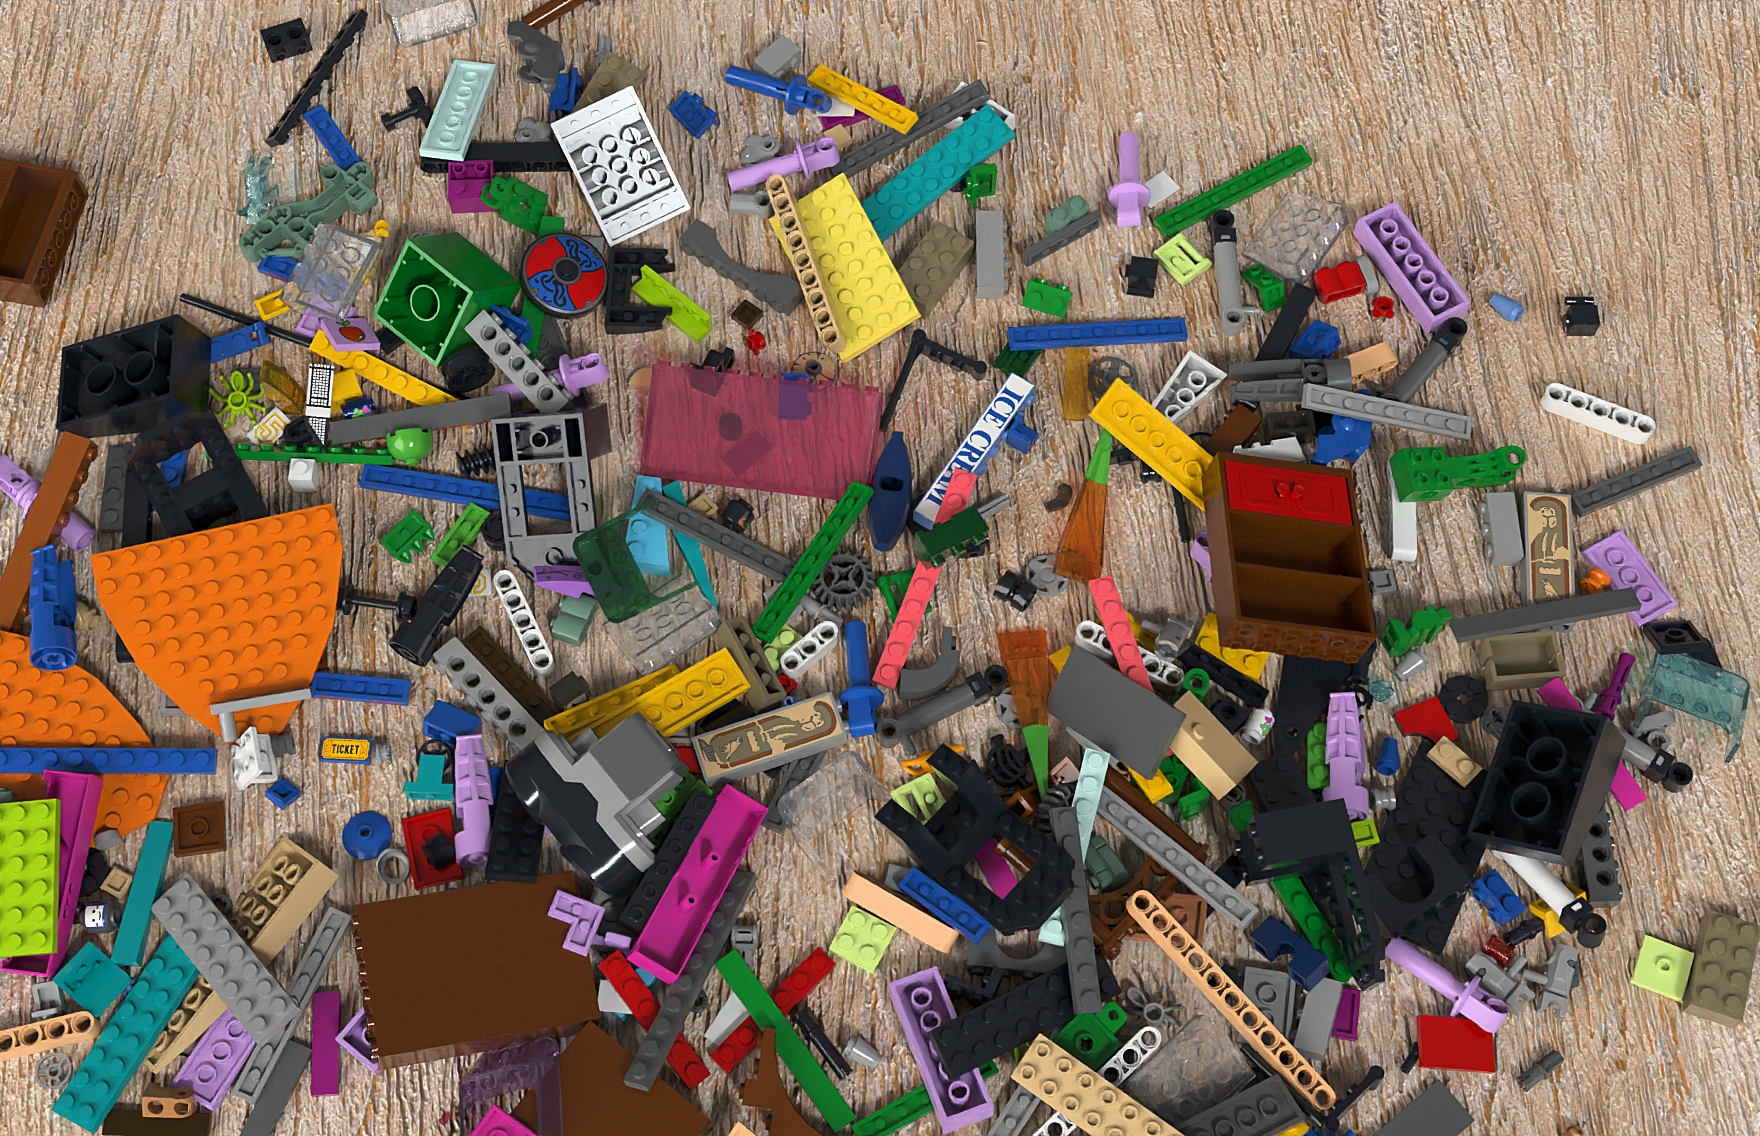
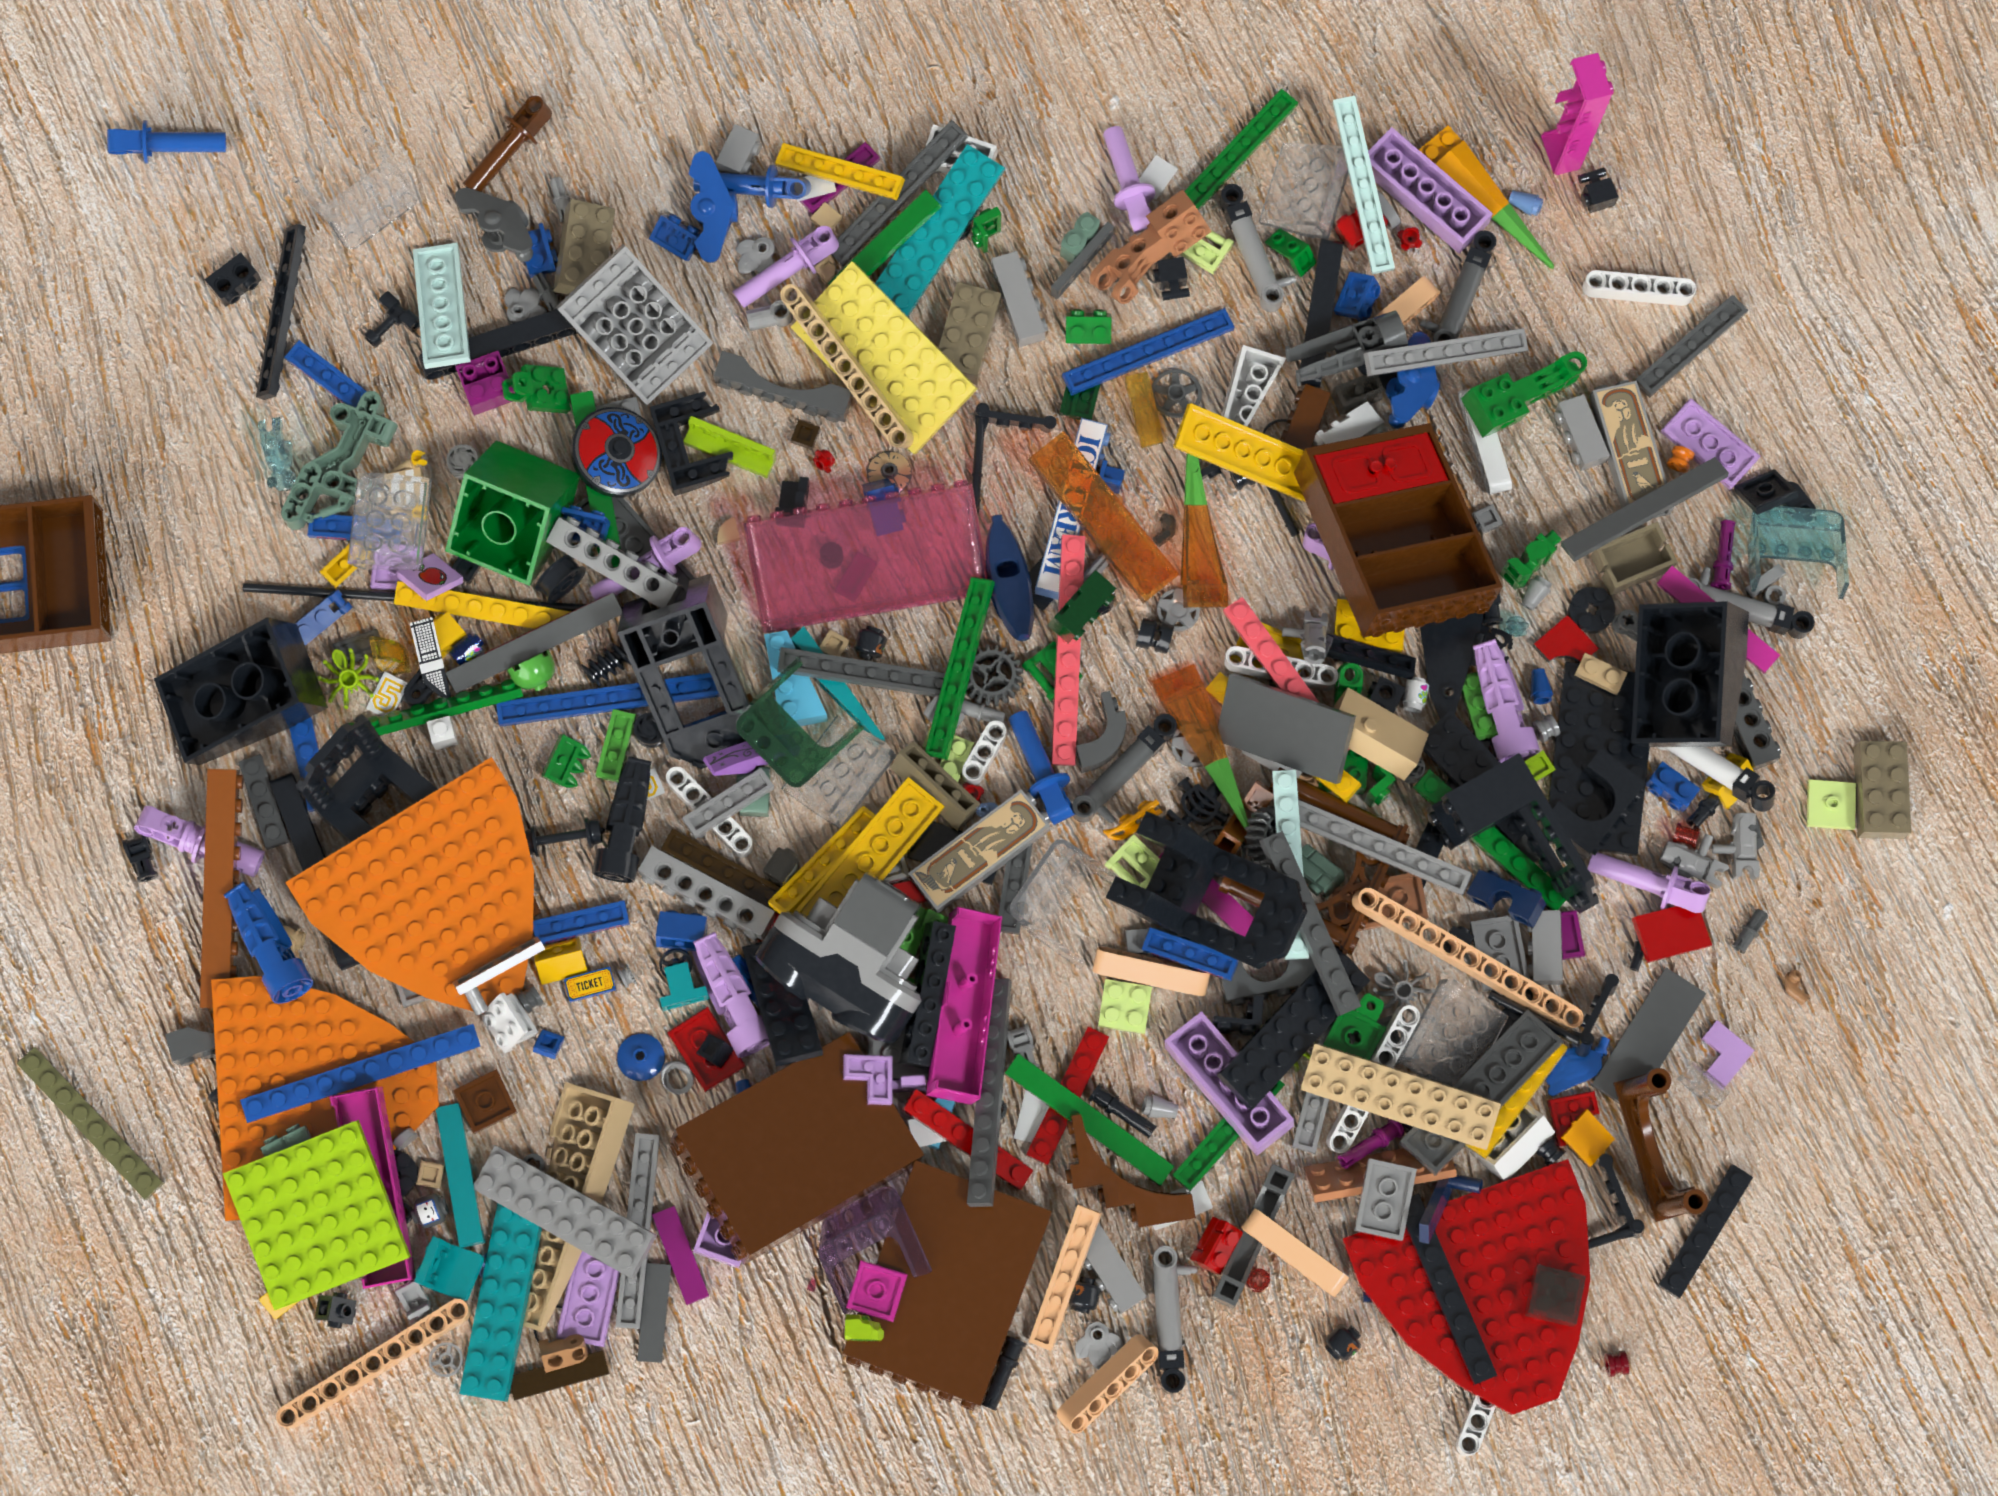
camera: 20 degrees left, 10 degrees up
(326, 718) = (560, 961): none -> yellow panel
(541, 618) = (728, 803): none -> light grey piece
(735, 95) = (711, 207): none -> blue piece
(820, 178) = (826, 269): none -> tan tile
(895, 163) = (895, 234): none -> green tile
(1001, 466) = (1103, 517): none -> clear orange plate
(1157, 229) = (1171, 229): none -> nougat brick
(1351, 243) = (1363, 185): none -> light aqua plate
(1455, 257) = (1462, 166): none -> light orange plate
(1588, 219) = (1581, 115): none -> dark pink piece

